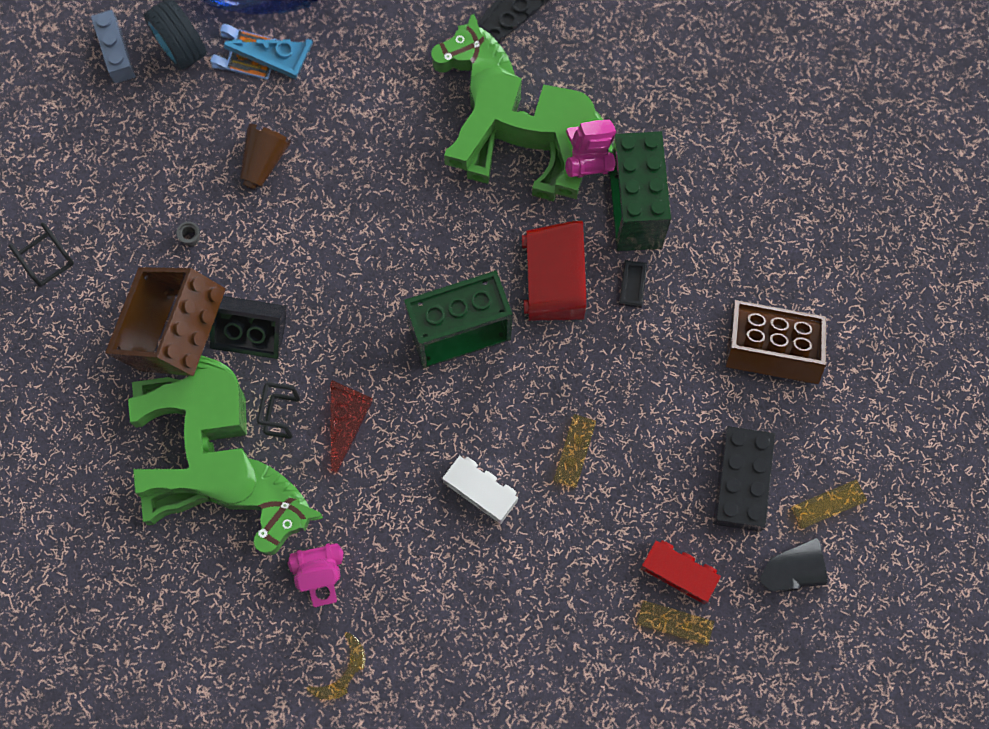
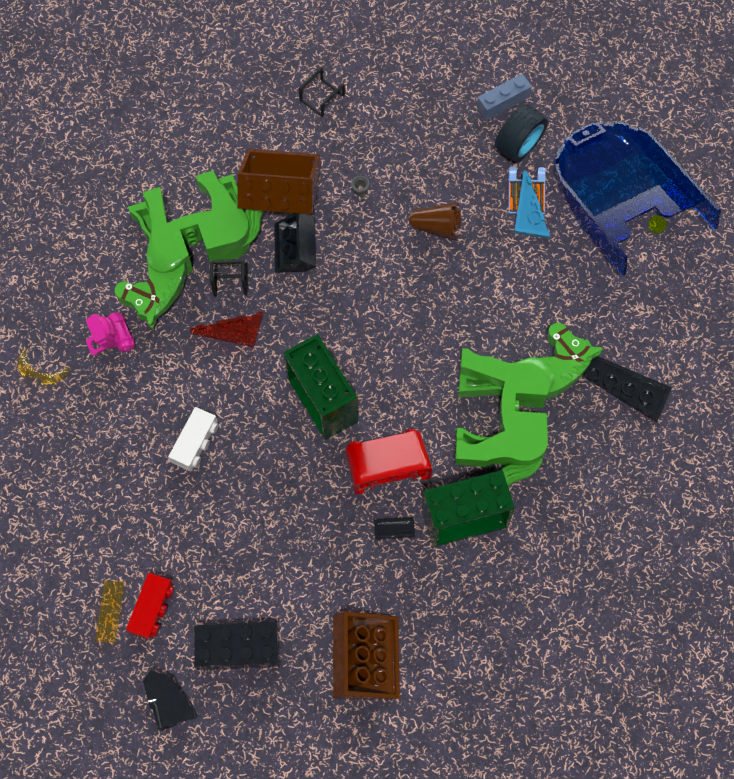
camera: 80 degrees right, 5 degrees down
(574, 451) = (239, 507): clear yellow tile -> none
(591, 148) = (490, 455): dark pink piece -> none
(828, 504) = (229, 724): clear yellow tile -> none

